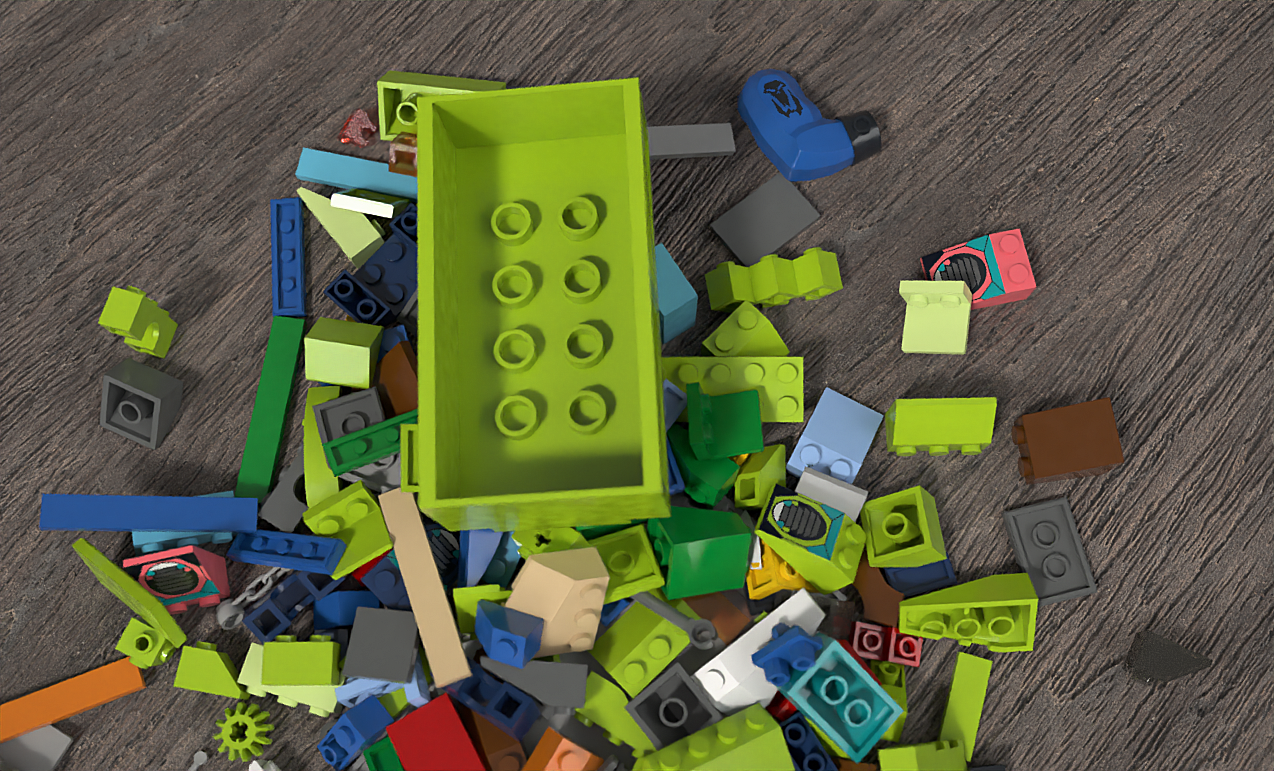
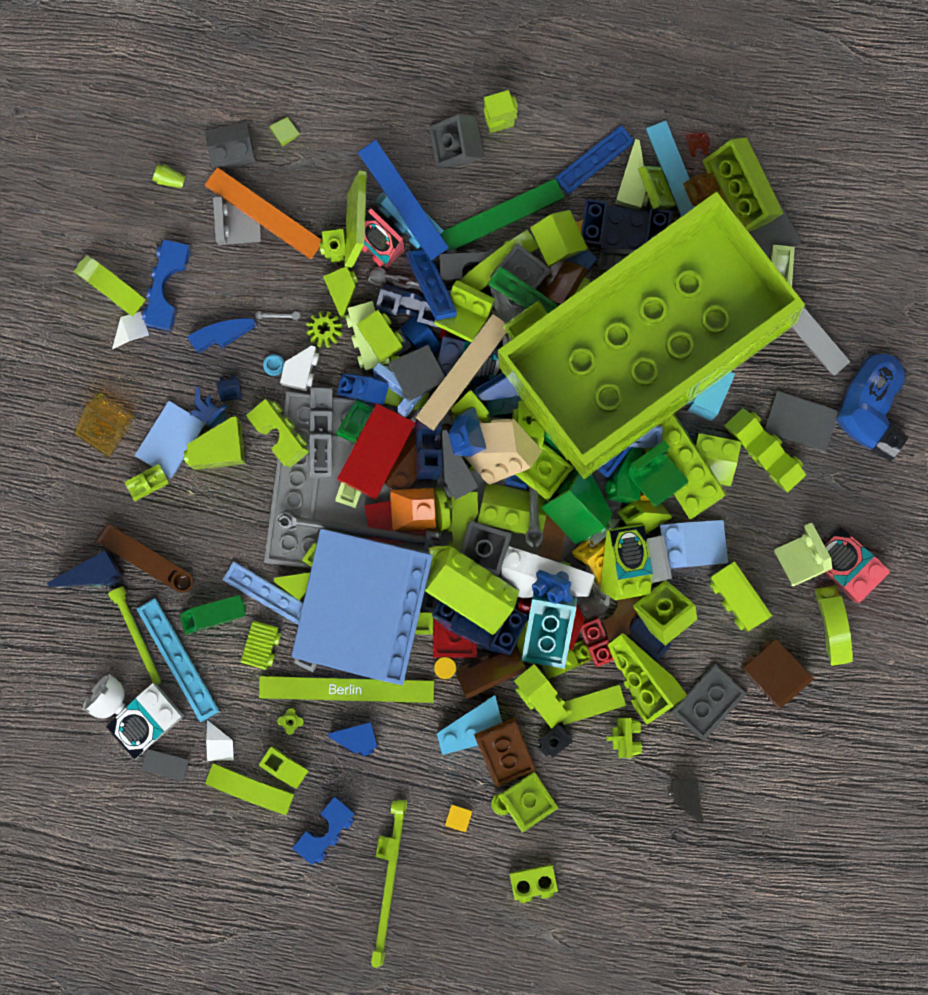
camera: 60 degrees right, 10 degrees up
(588, 737) = (442, 512): none -> lime tile
(1034, 692) = (622, 737): none -> lime hips
(1053, 333) = (835, 625): none -> lime arch

